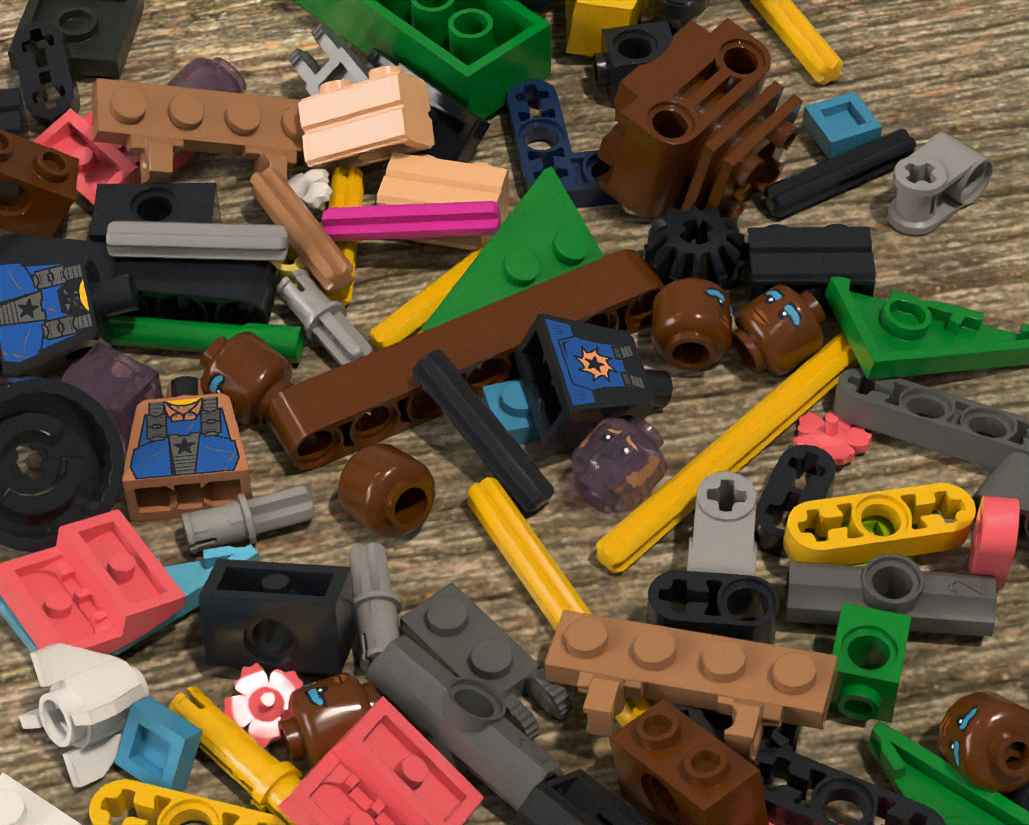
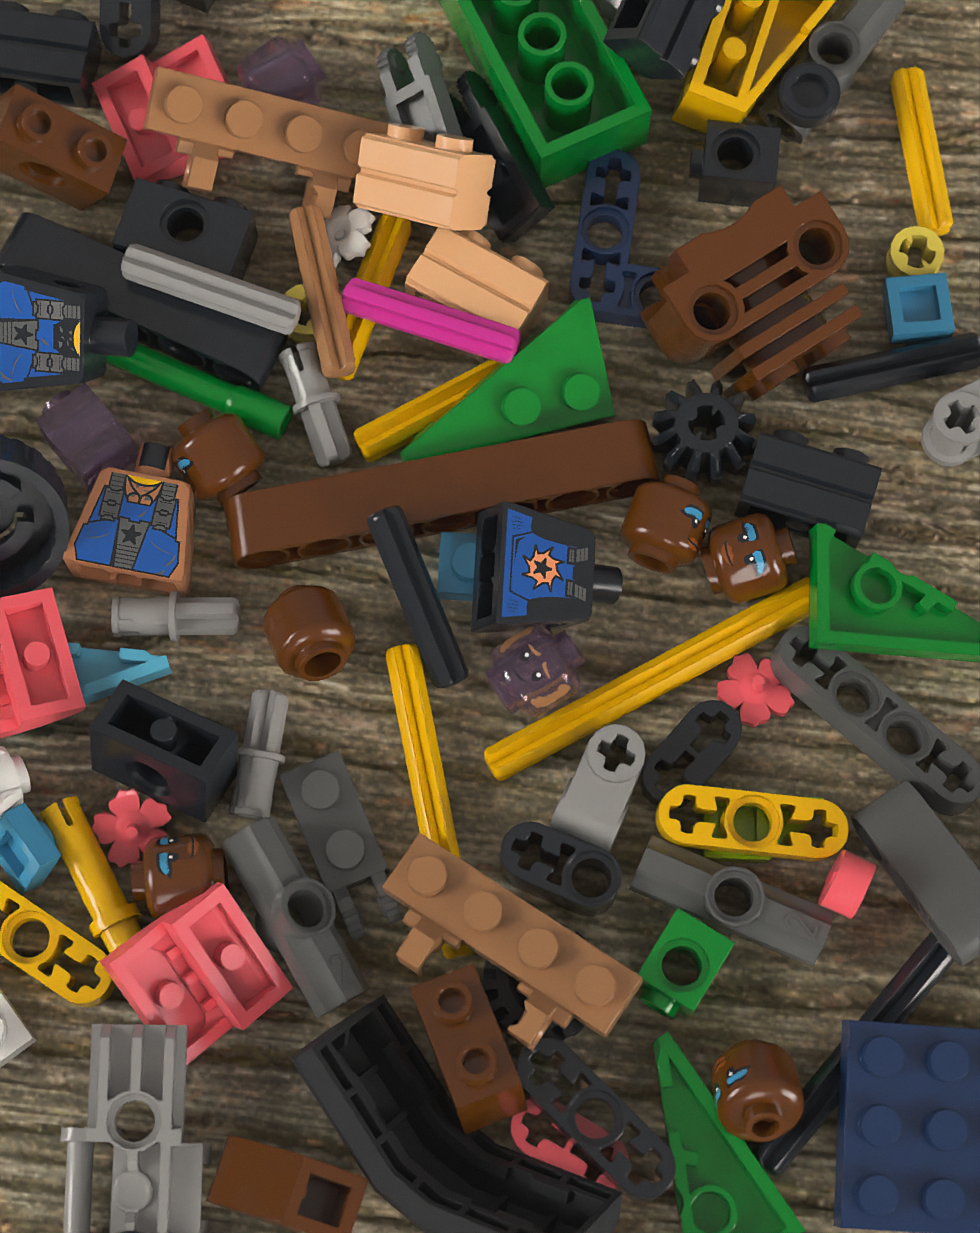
camera: 15 degrees right, 25 degrees up
(819, 82) = (916, 237): none -> light yellow bush

